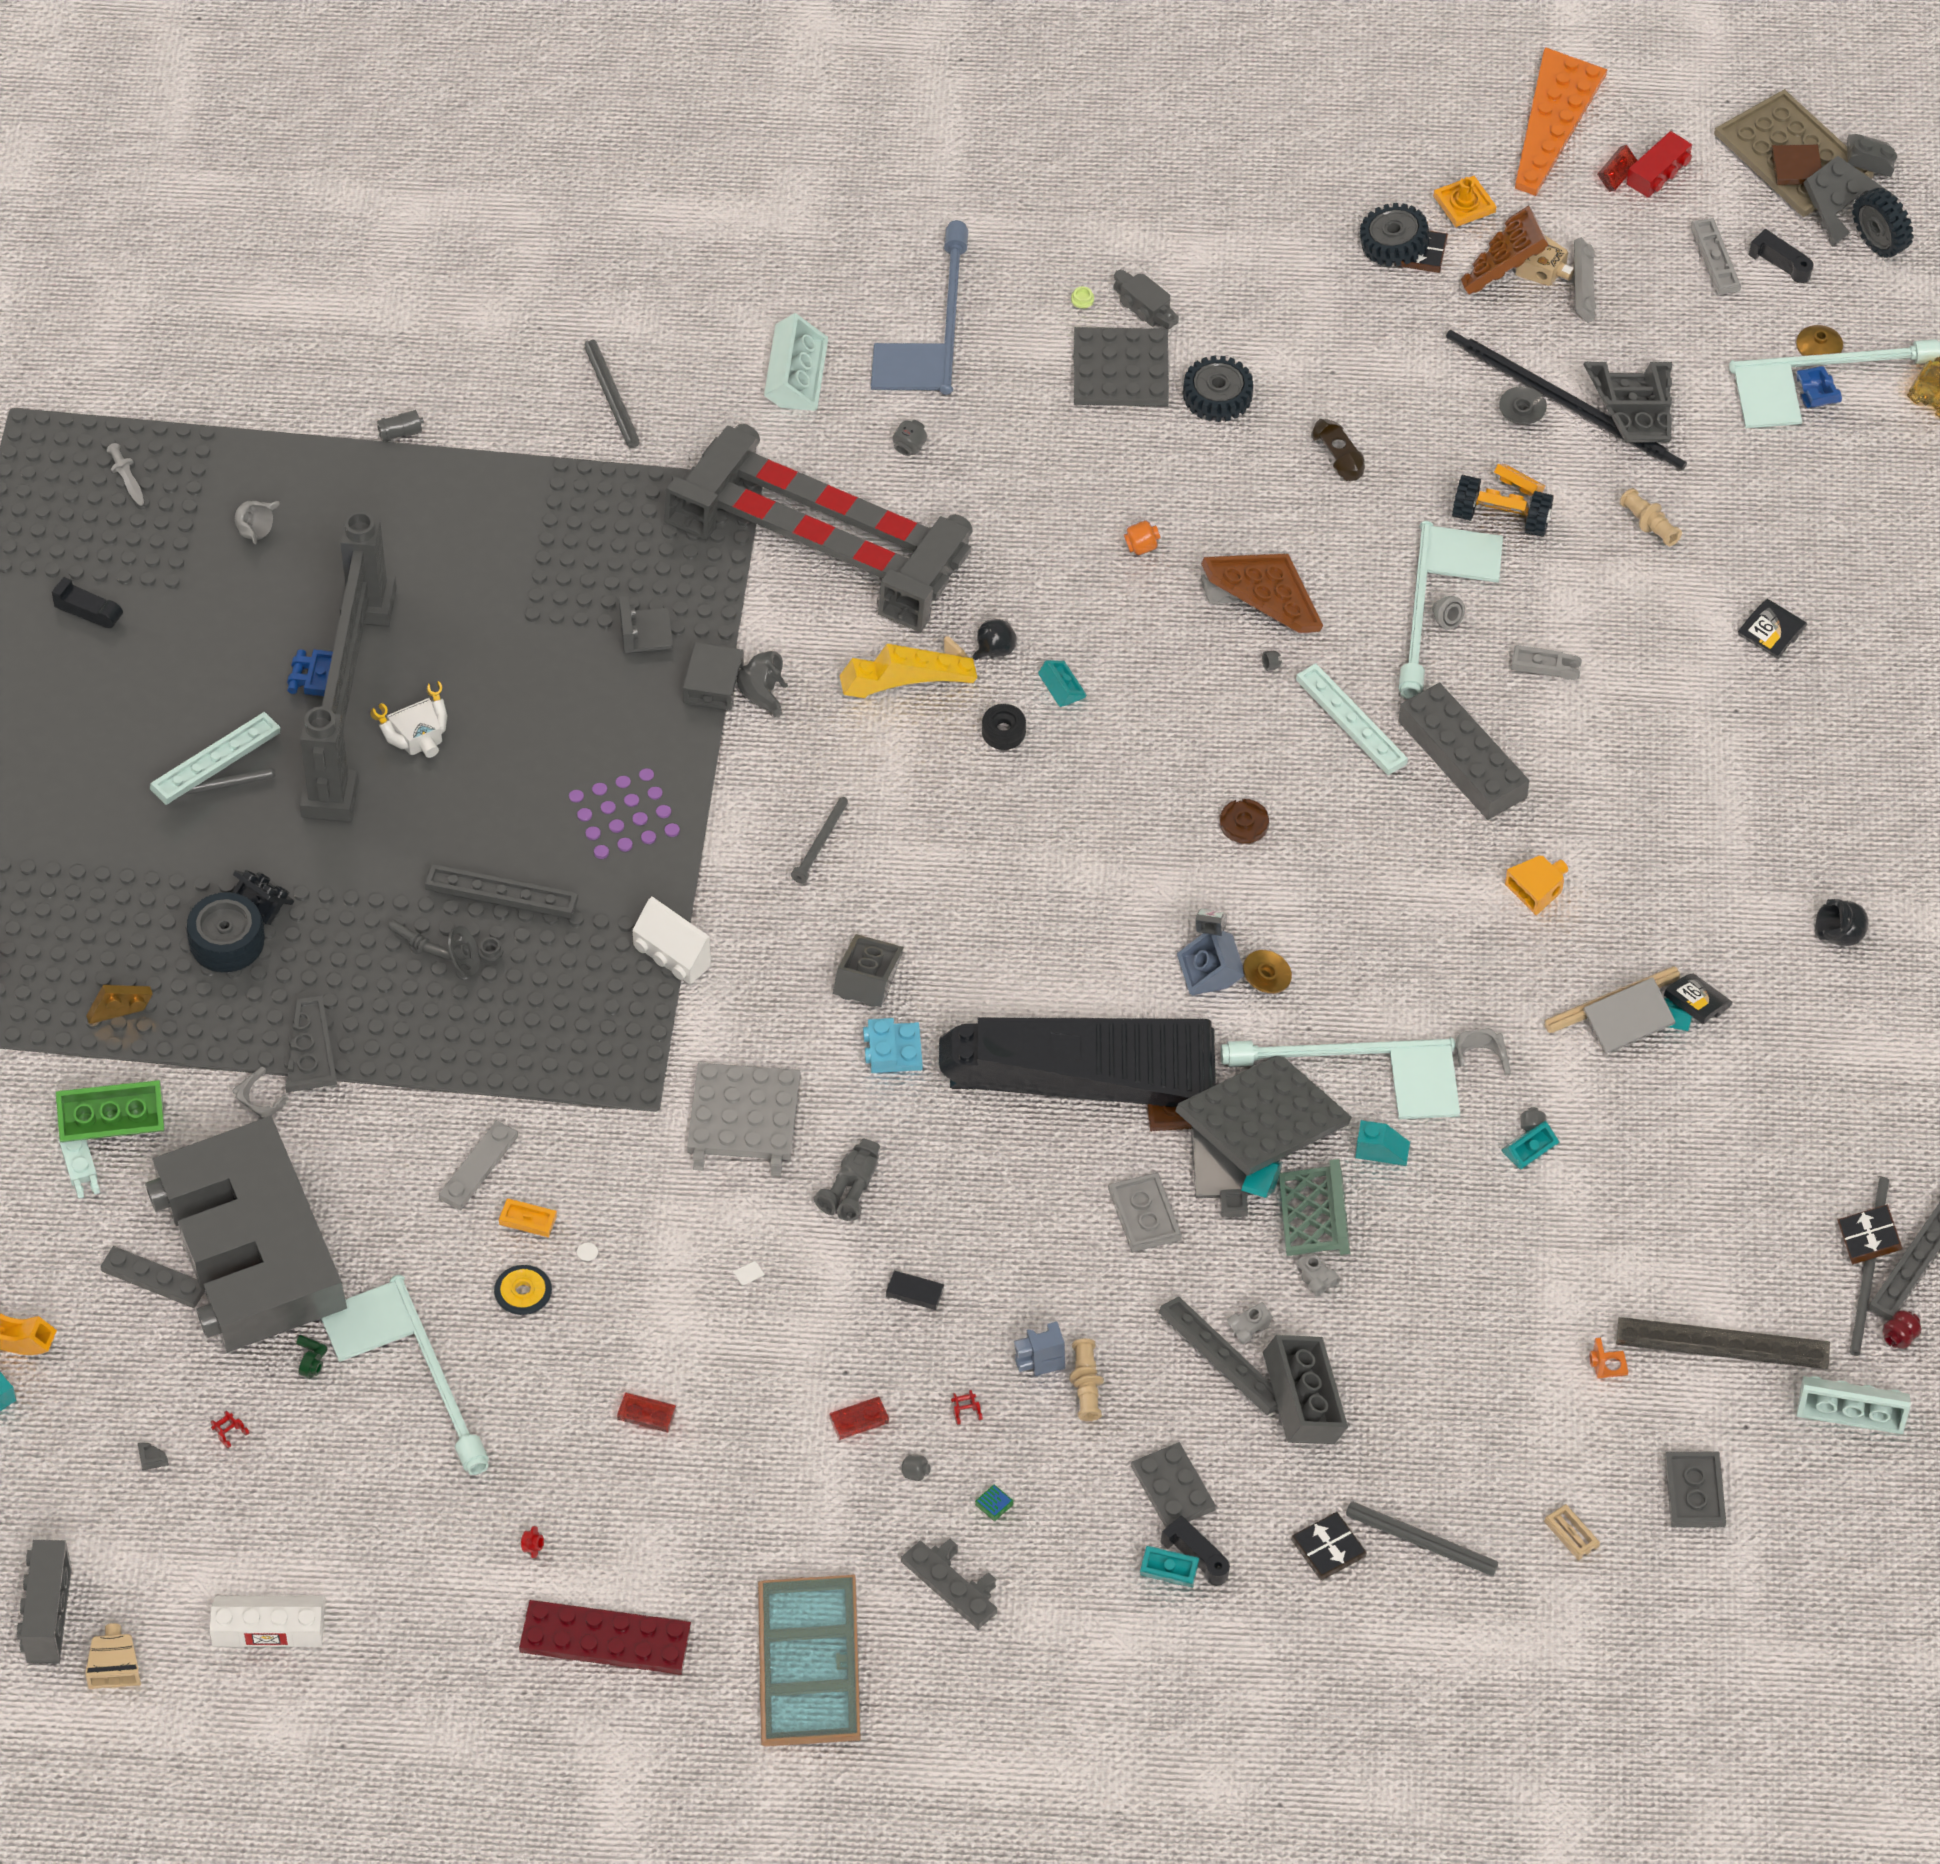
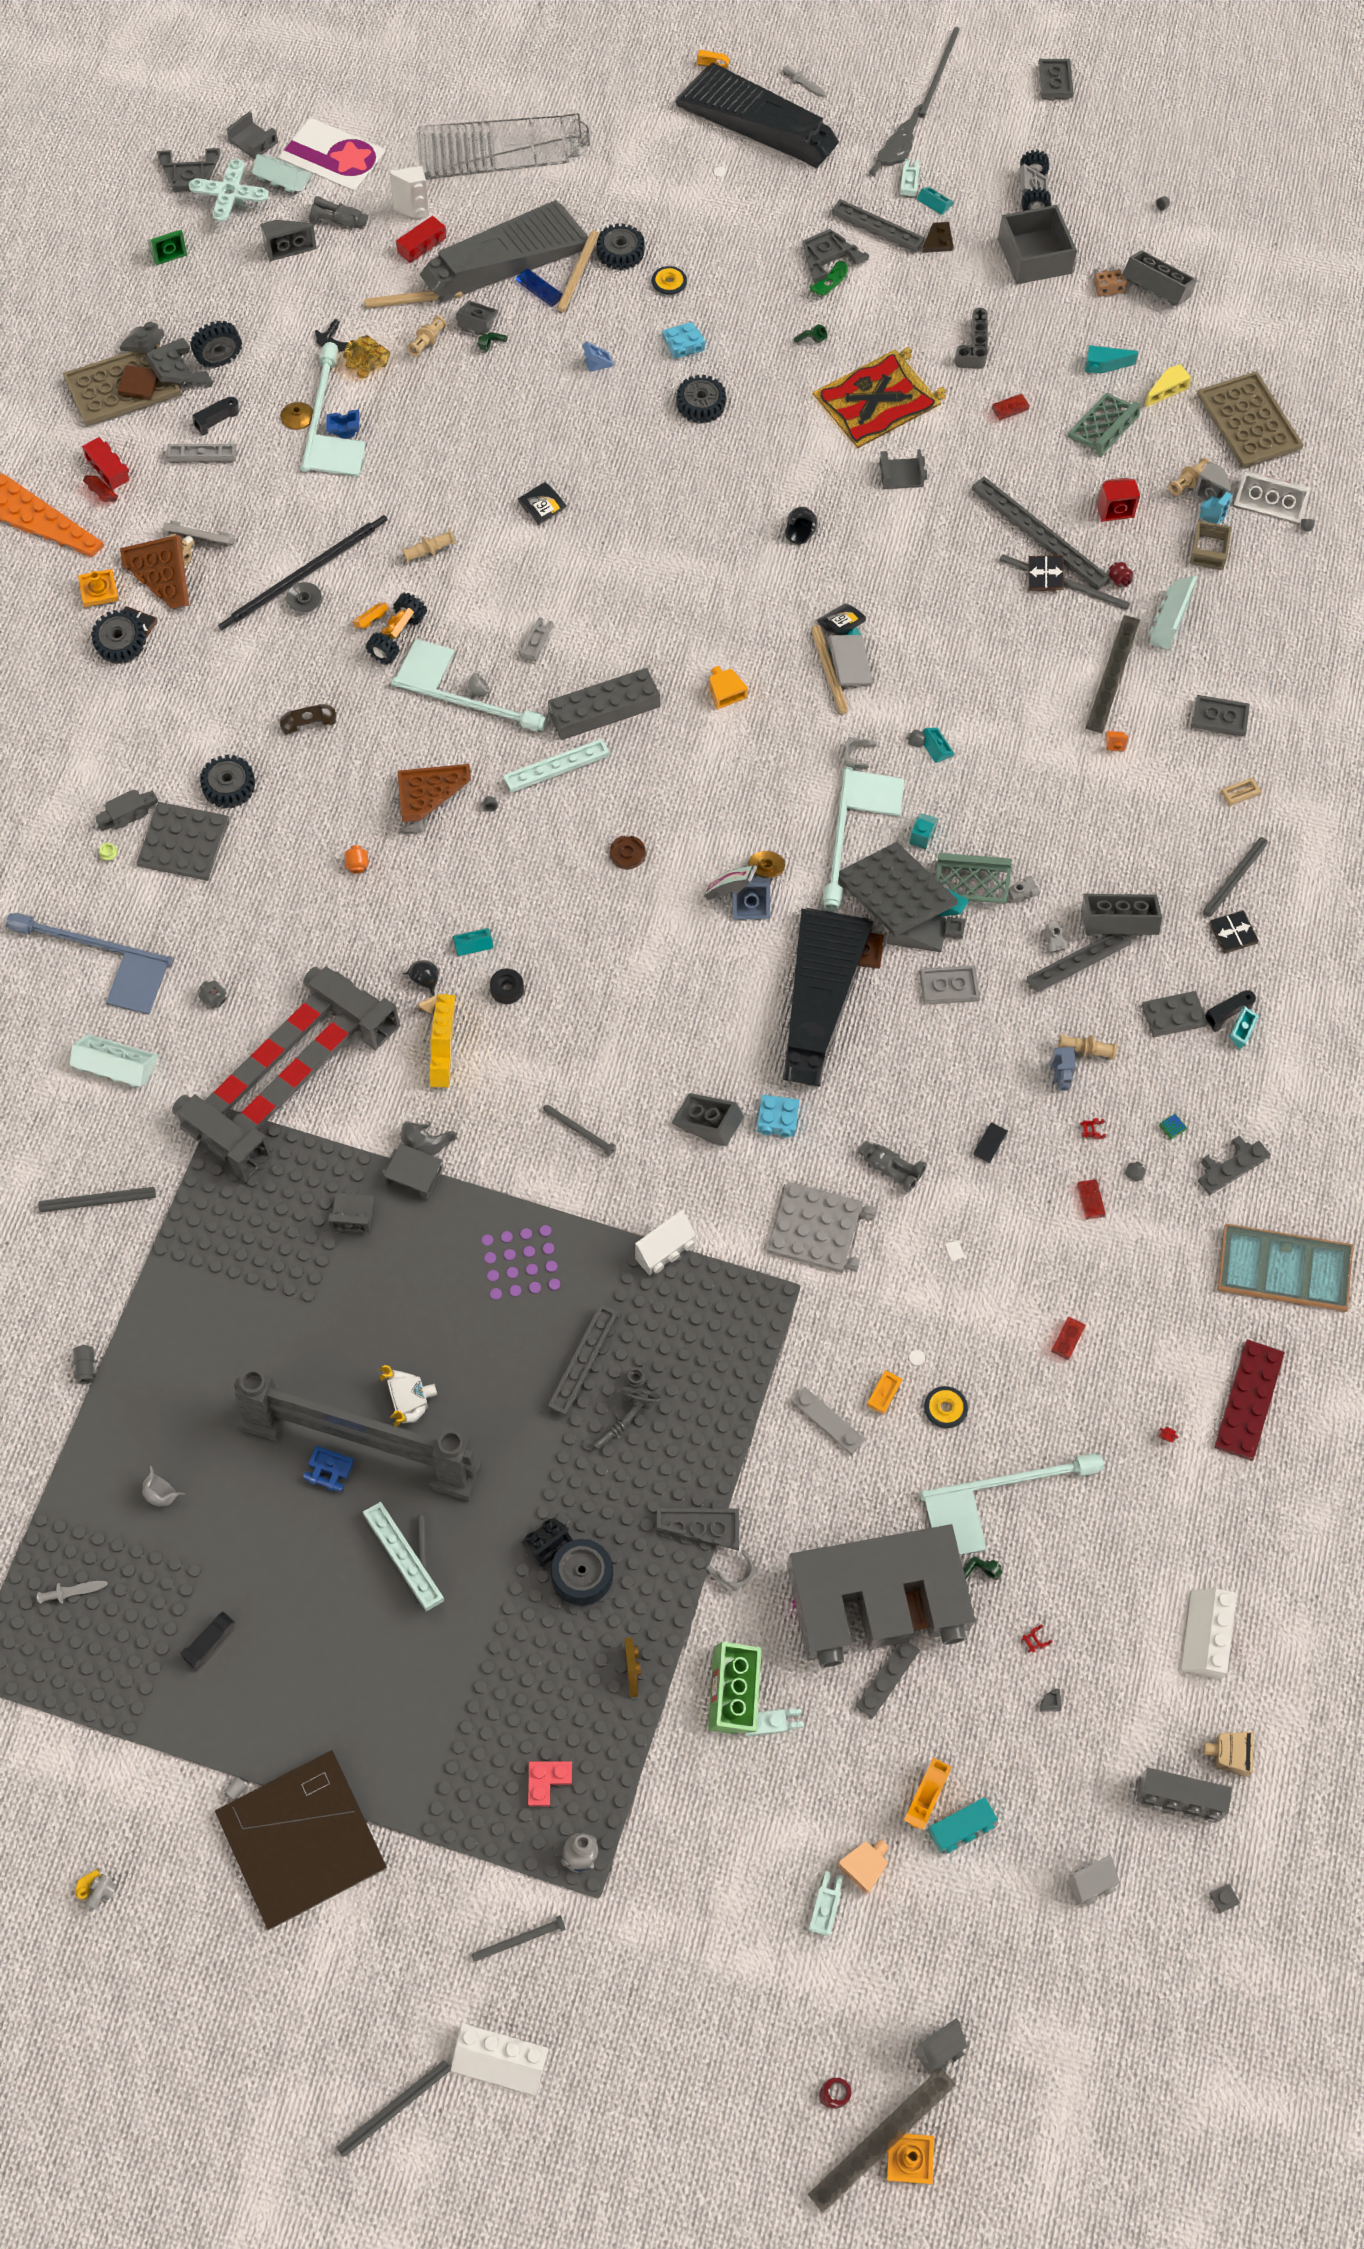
camera: 80 degrees left, 10 degrees up
(1637, 400) = (325, 527): dark grey wedge -> none

